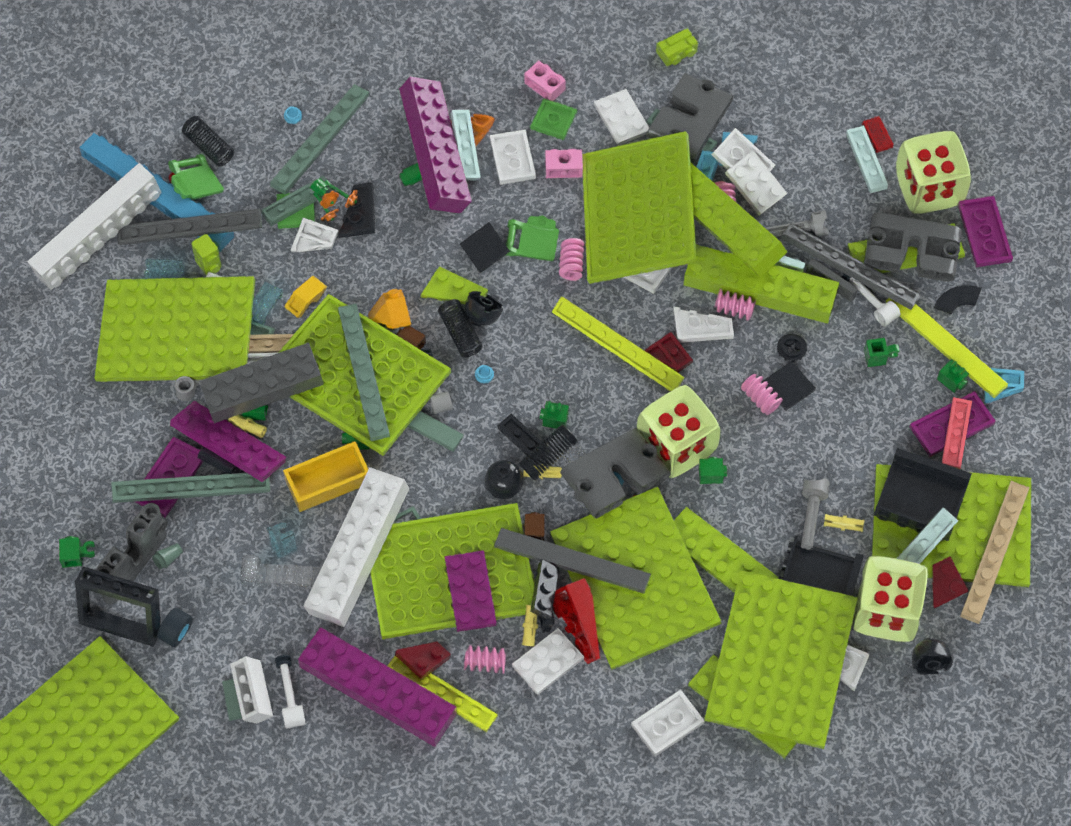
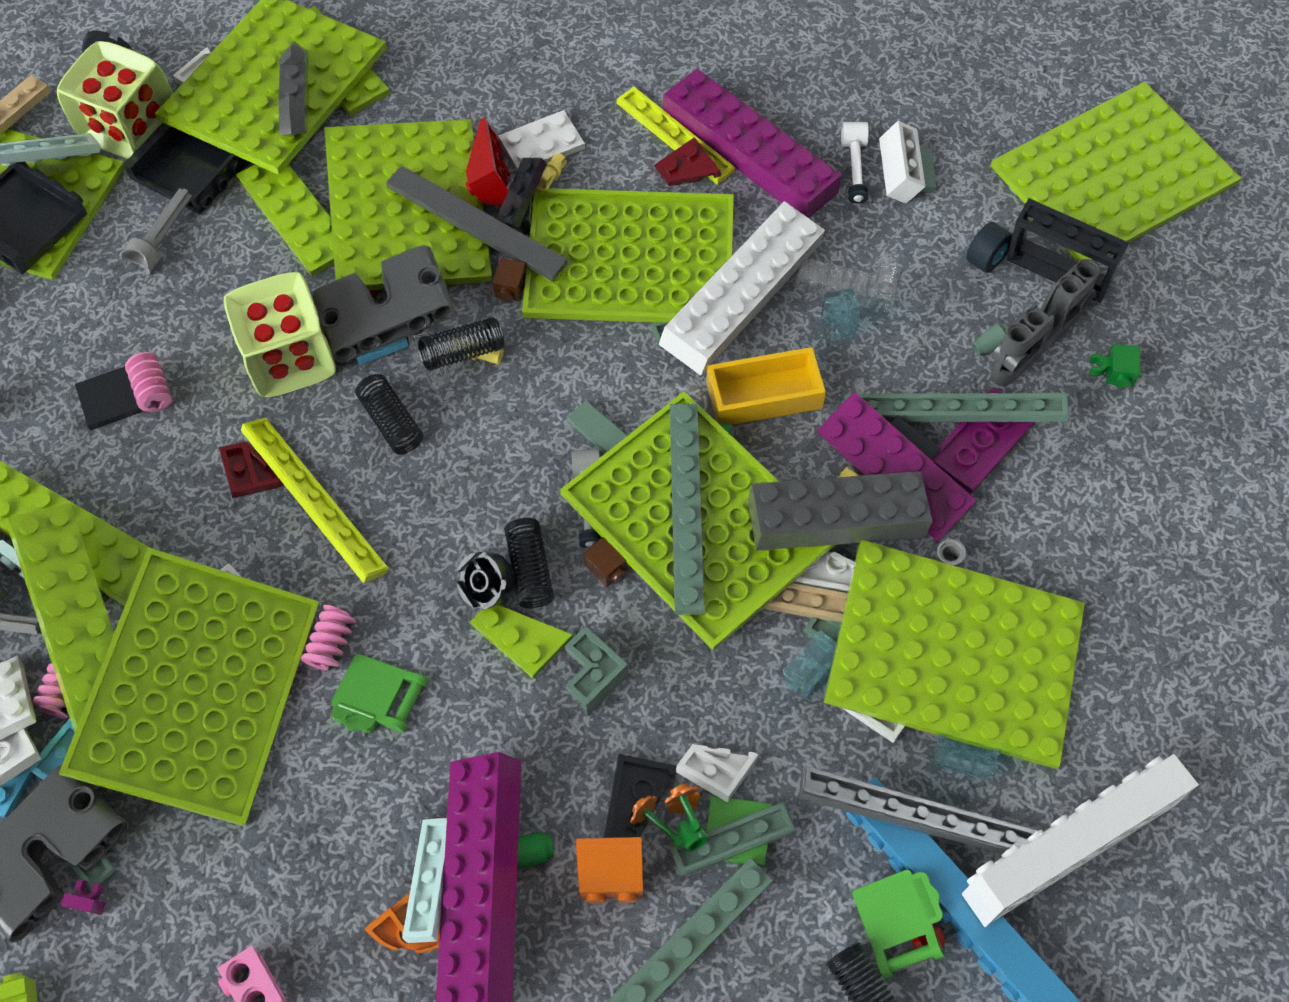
camera: 165 degrees left, 0 degrees up
(206, 254) = (896, 757): lime brick -> none
(304, 295) = (745, 665): yellow slope -> none
(363, 167) = (610, 869): none -> orange slope
(391, 310) = (626, 604): light orange slope -> none
(397, 275) = (601, 671): none -> sand green panel
(470, 591) = (612, 218): magenta plate -> none
(484, 247) = (453, 688): black tile -> none
(484, 374) = (513, 496): medium azure plate -> none
(484, 658) = (615, 150): bright pink piece -> none
(504, 479) = (530, 349): black cylinder -> none
(512, 157) = (358, 848): white plate -> none
(520, 436) = (487, 394): black plate -> none
(553, 119) = (265, 912): bright green tile -> none
(554, 414) = (435, 413): green brick -> none
(571, 169) = (266, 801): bright pink brick -> none
(605, 419) = (386, 403): none -> black piece
(621, 117) = (152, 889): white plate -> none
(655, 99) = (84, 901): none -> magenta tile
(667, 723) = (428, 56): white plate -> none
(700, 327) = (186, 499): white wing -> none
(735, 305) = (125, 515): bright pink piece -> none
(753, 634) = (293, 90): none -> dark grey brick
(789, 340) = (81, 435): black gear -> none
(844, 523) = (127, 217): light yellow pin -> none
(946, 582) = (44, 124): dark red wing -> none

